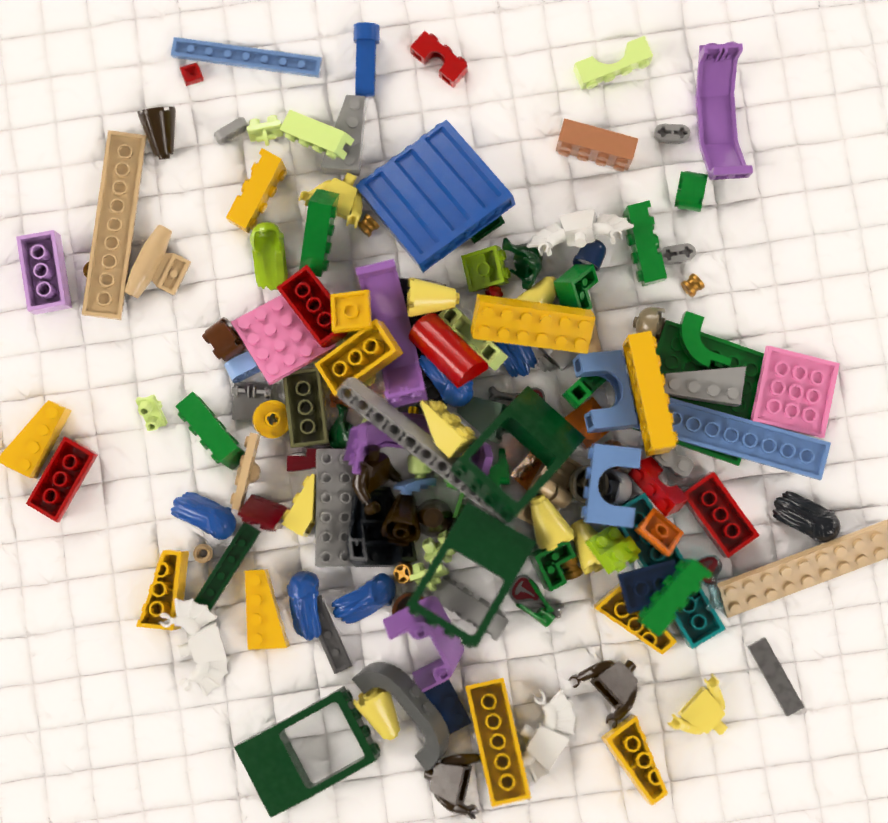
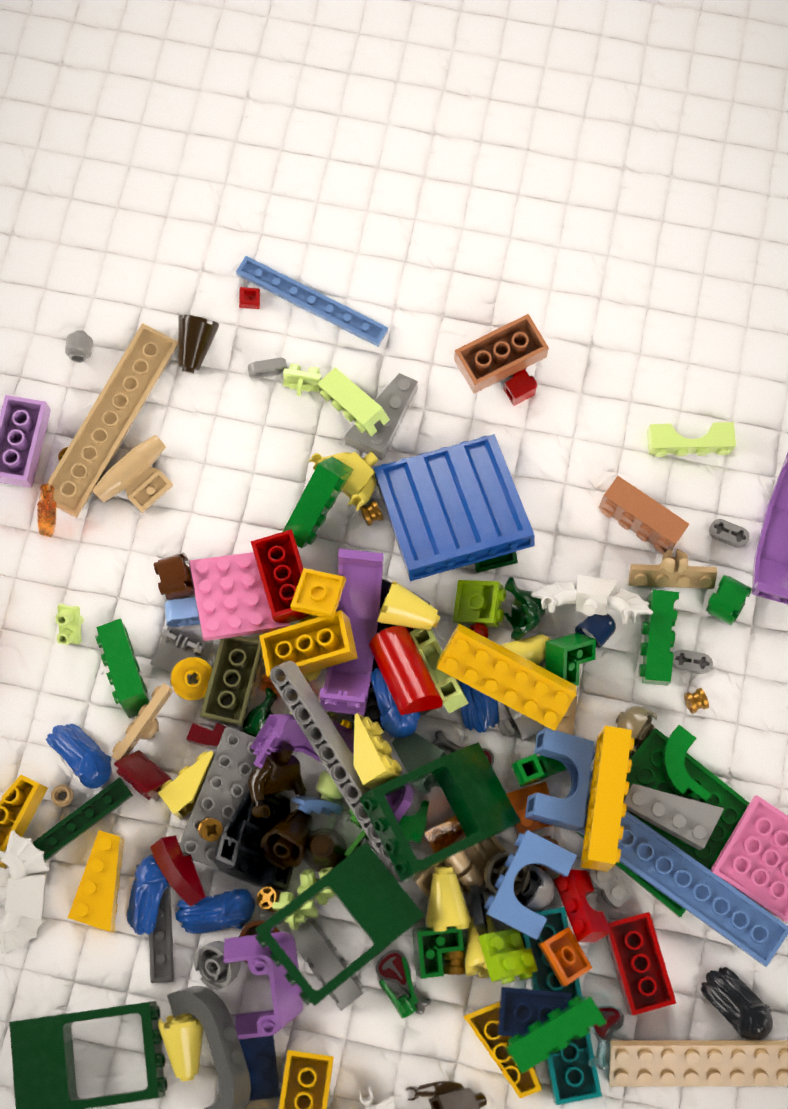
camera: 15 degrees right, 10 degrees down
(61, 170) = (79, 346): none -> light grey head
(93, 324) = (46, 511): none -> clear orange hinge
(257, 191) = (269, 437): yellow wedge -> none
(268, 255) = (256, 506): lime hair -> none
(322, 578) = (178, 869): none -> dark red slope
(332, 537) = (209, 826): none -> pearl gold wheel
(366, 37) = (441, 325): blue beam -> none
(379, 644) = (212, 967): none -> light grey cylinder
(427, 46) = (501, 353): none -> nougat brick
(576, 521) = (477, 910): none -> black plate
(637, 184) = (672, 573): none -> tan plate

